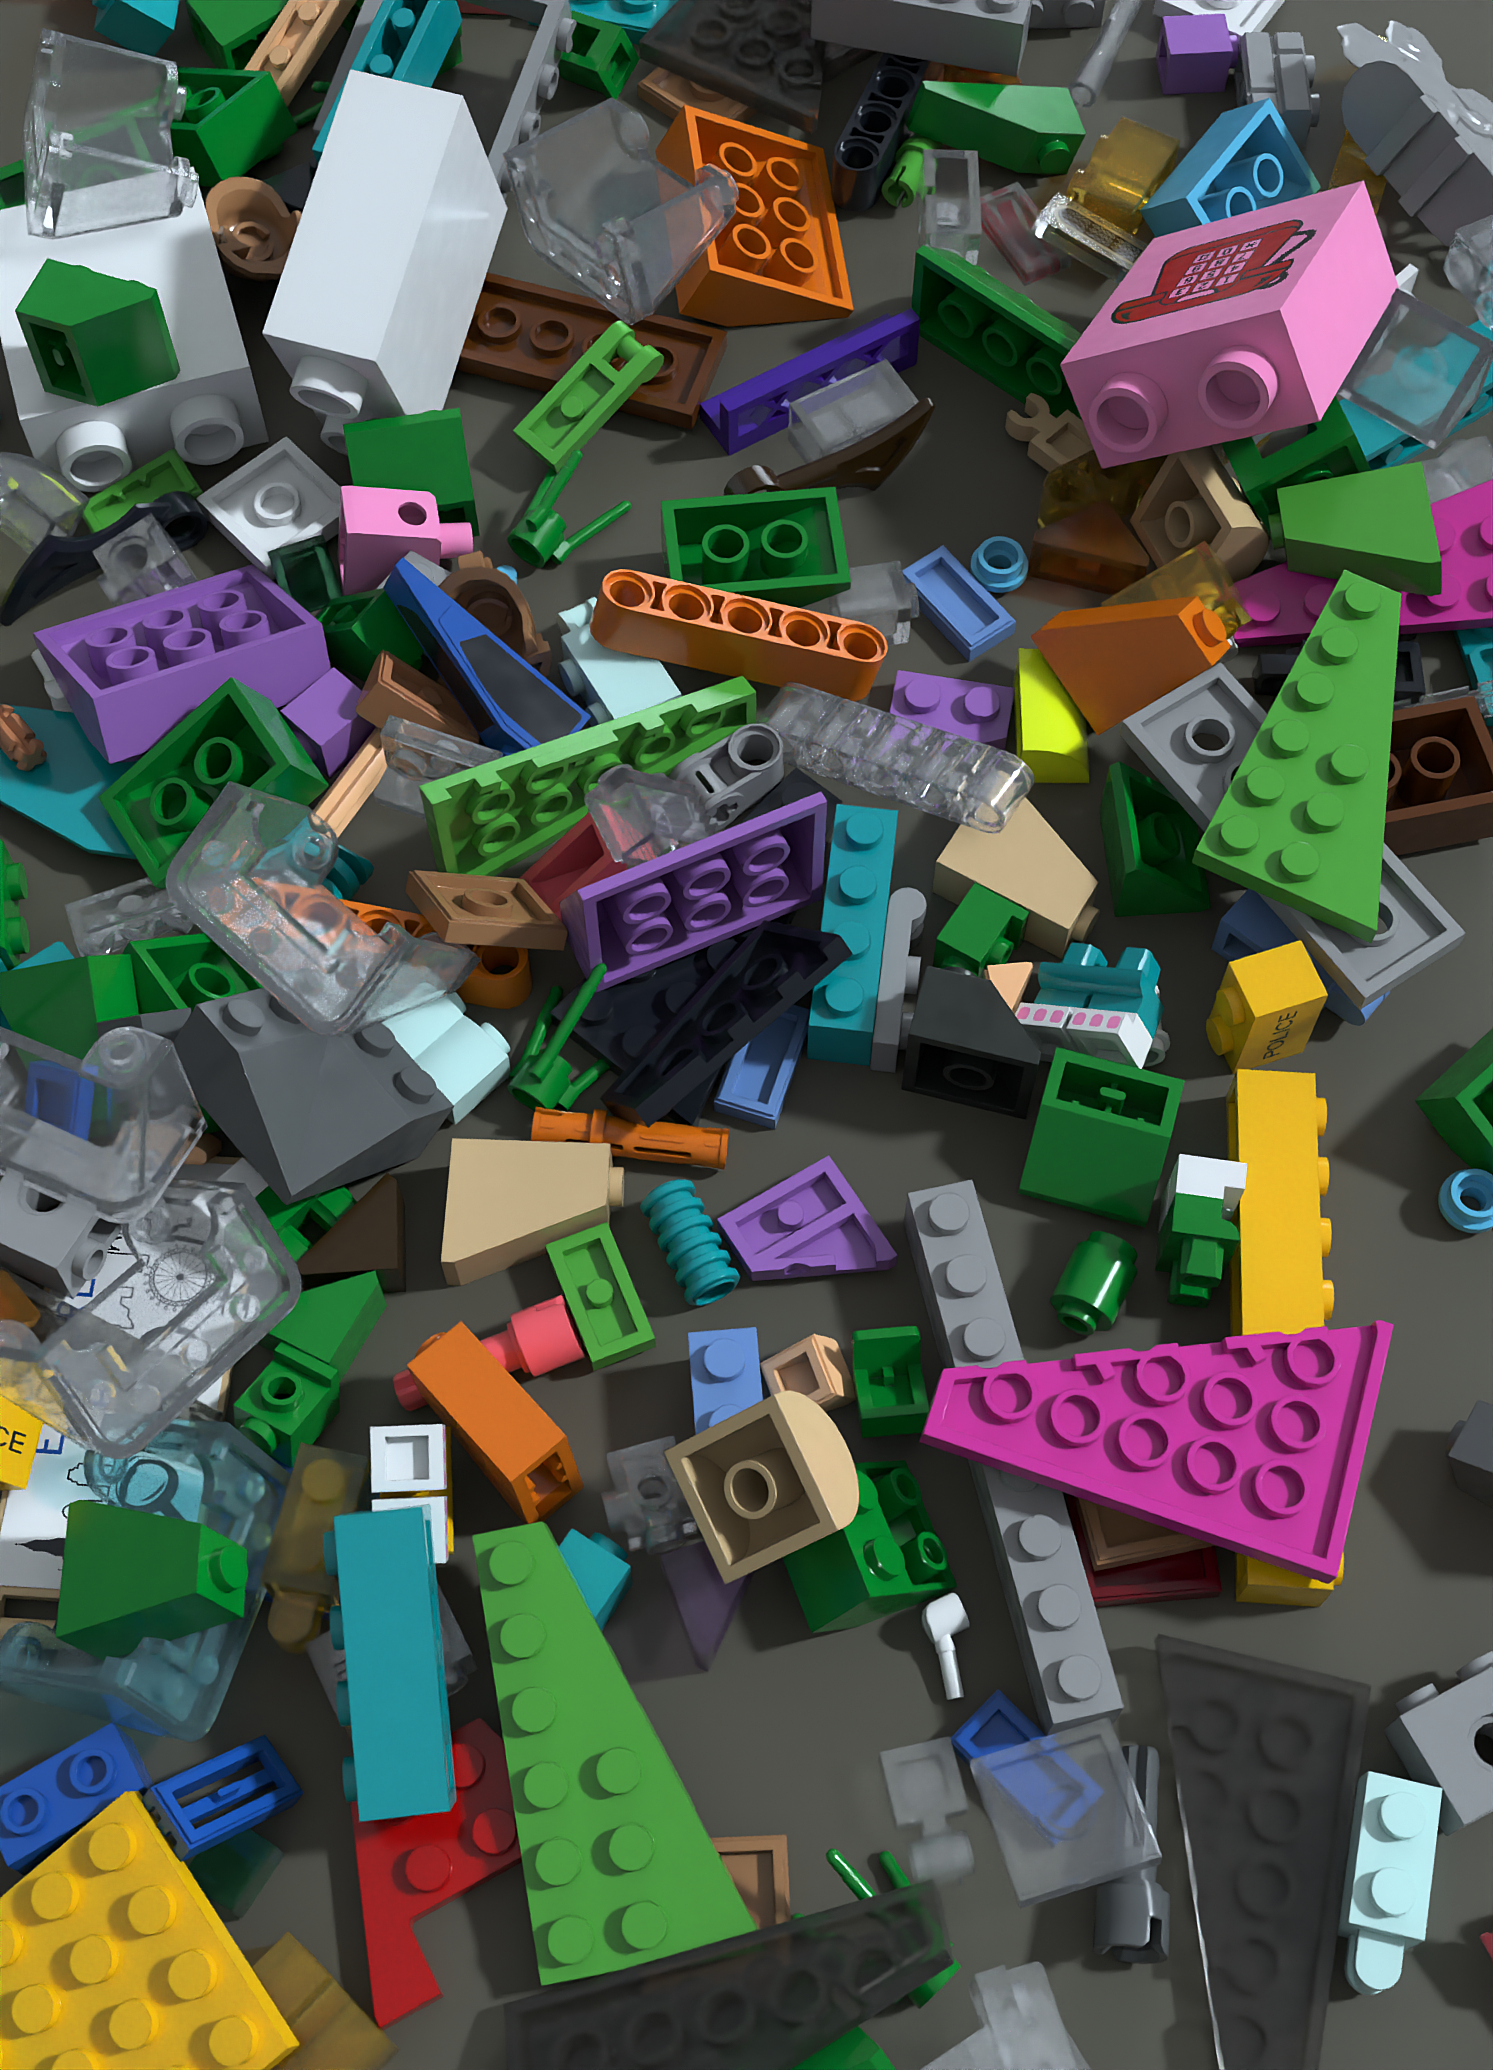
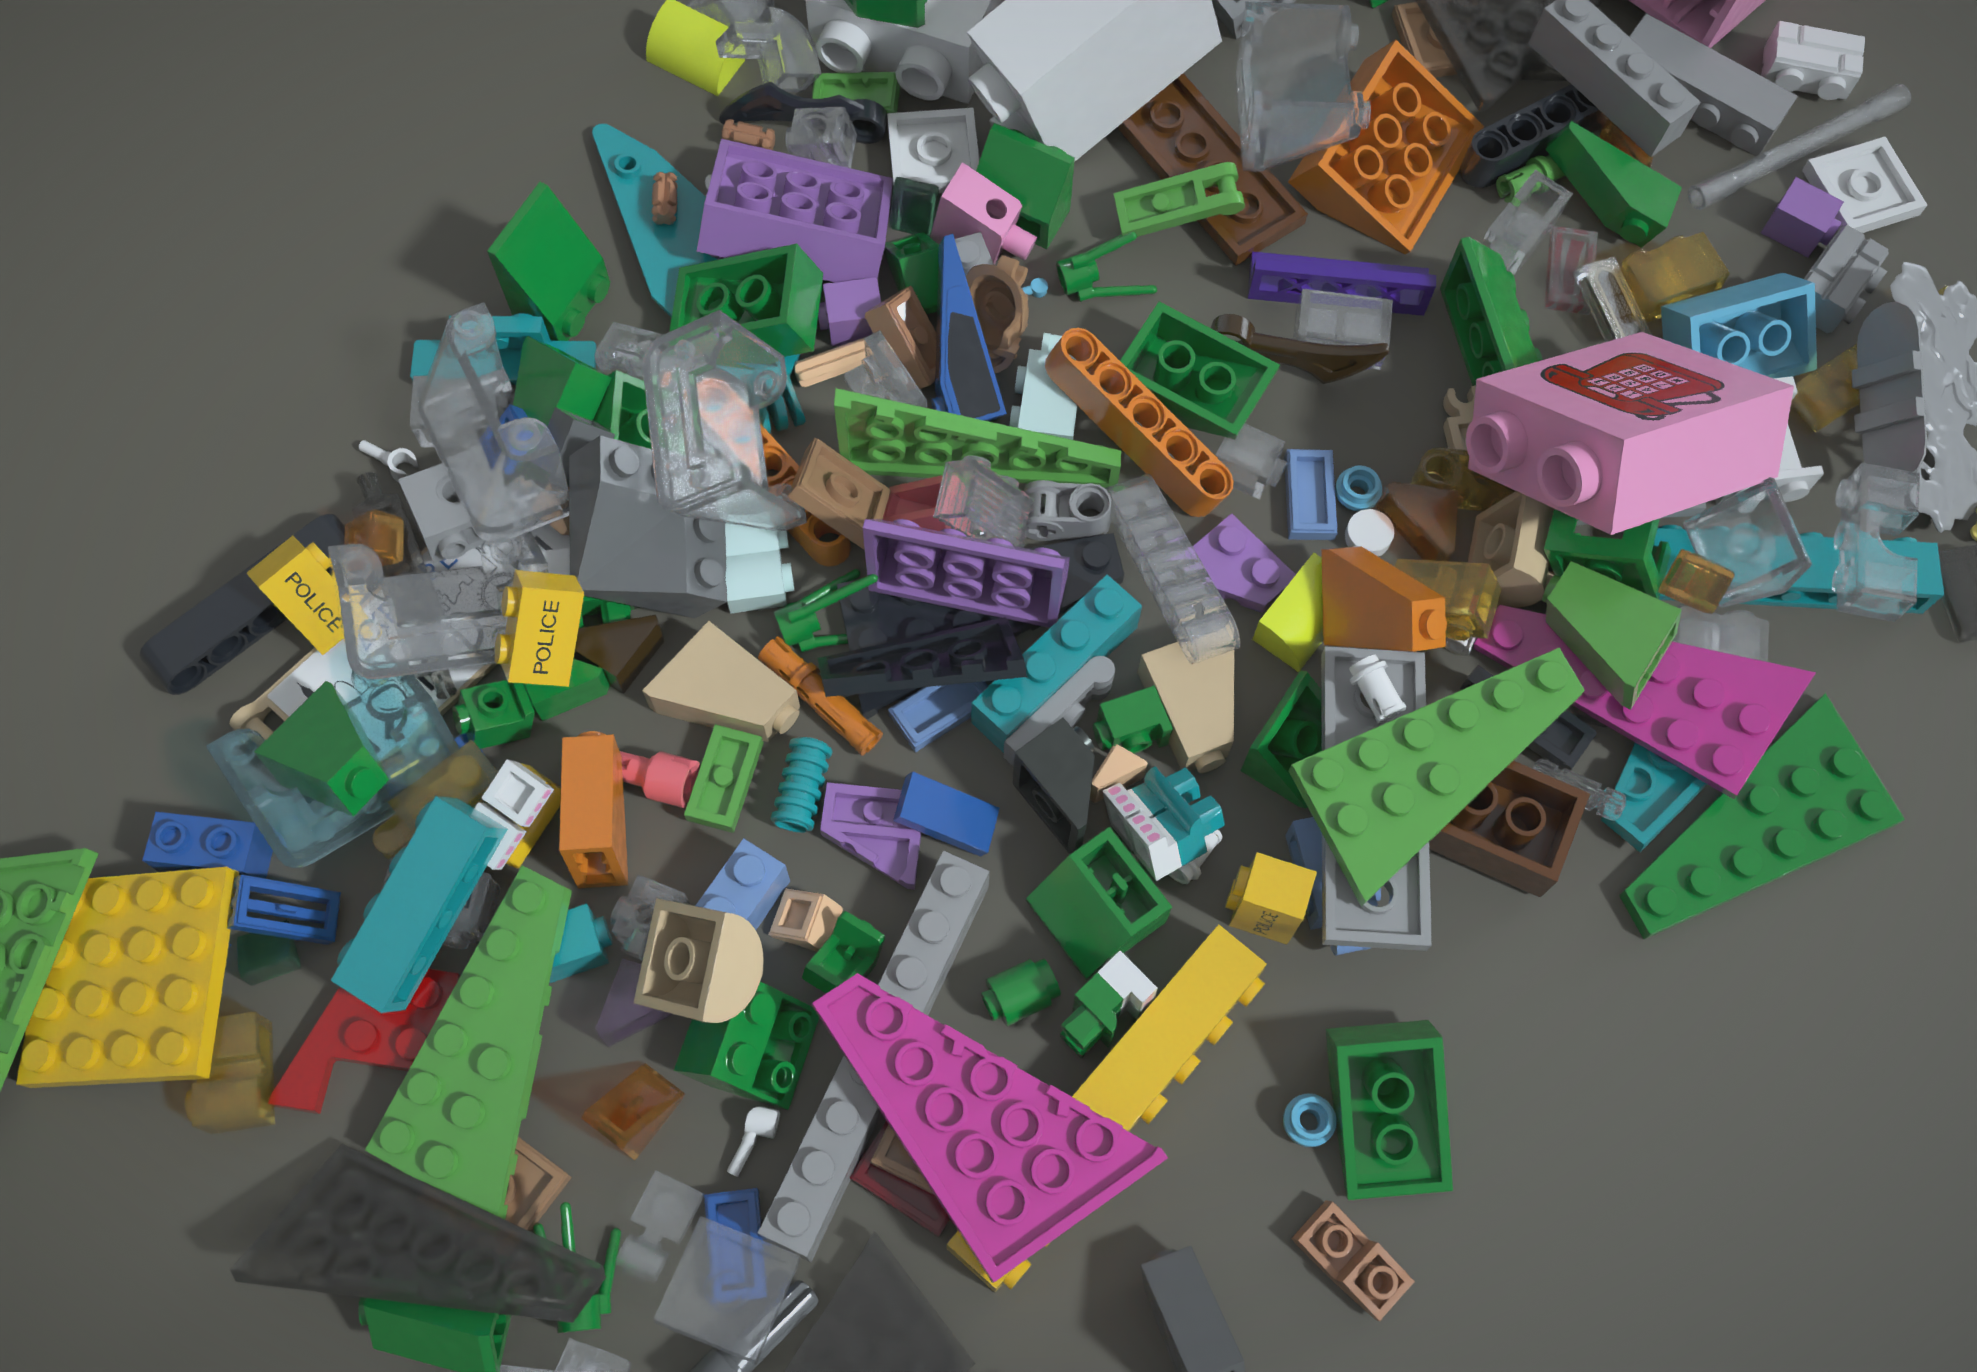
camera: 35 degrees right, 5 degrees up
(50, 615) = (748, 134): none -> nougat piece
(289, 1261) = (540, 628): none -> yellow brick
(802, 1712) = (634, 1110): none -> clear orange slope
(870, 1161) = (946, 814): none -> blue tile
(1042, 598) = (1370, 530): none -> white tile
(1211, 722) = (1377, 688): none -> white pin
(1400, 435) = (1697, 581): none -> clear orange slope

